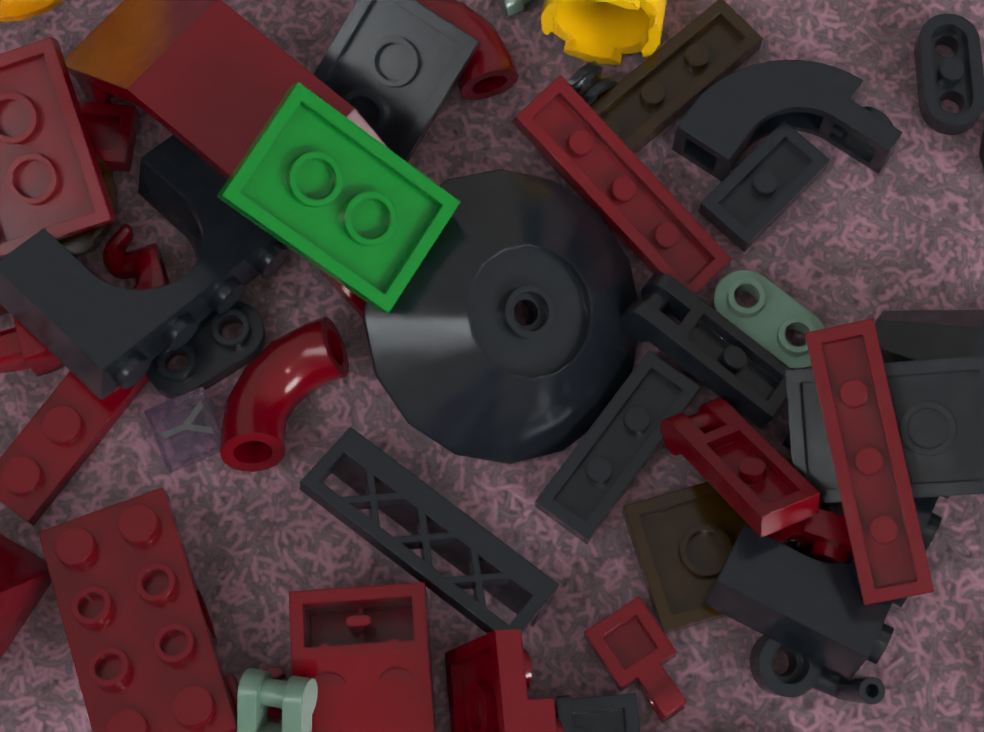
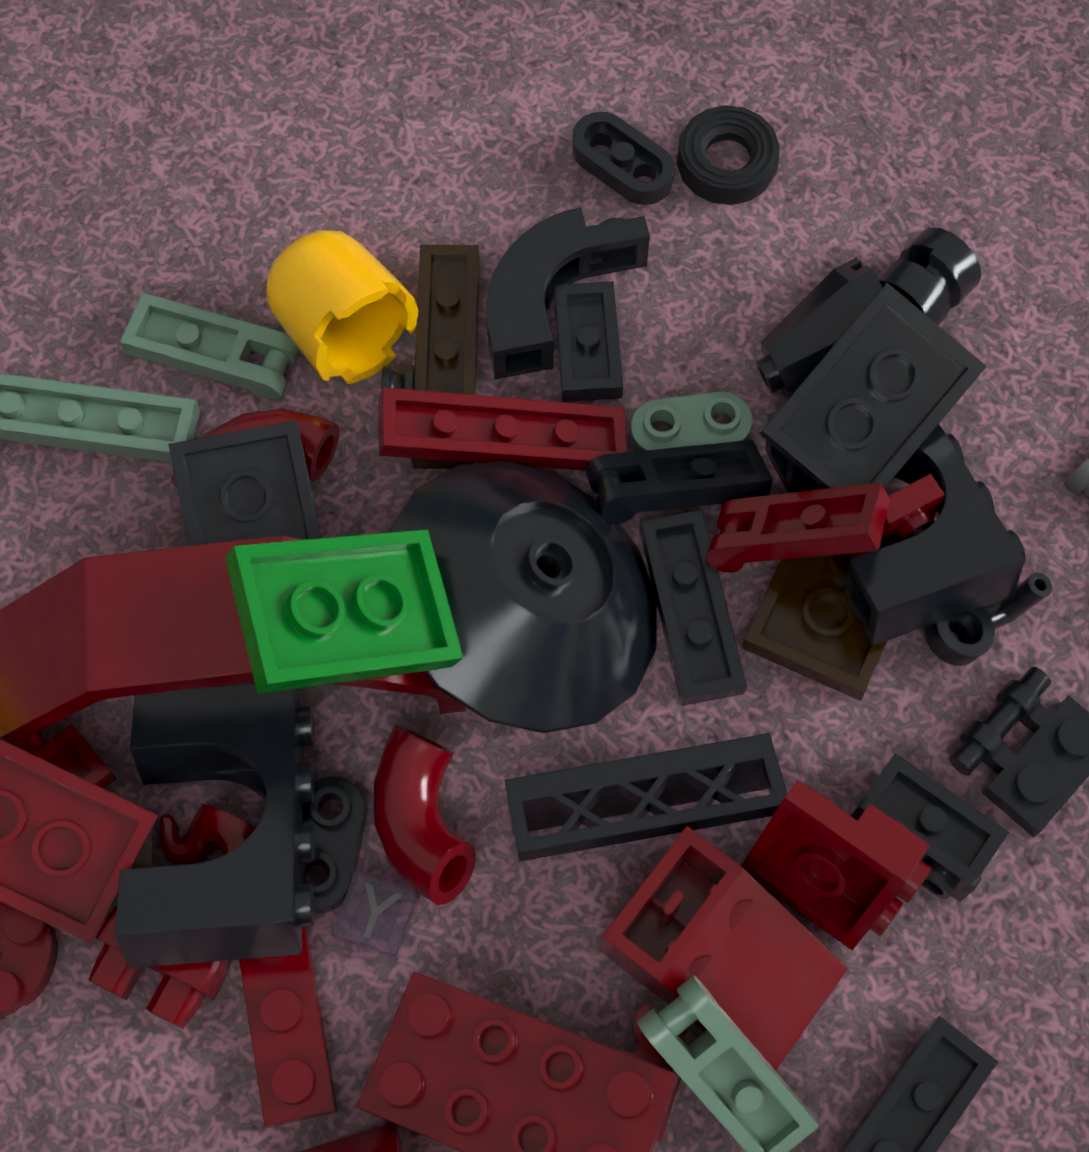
camera: 50 degrees left, 5 degrees down
(633, 651) = (857, 729): dark red plate -> none
(869, 462) = (888, 430): dark red plate -> none

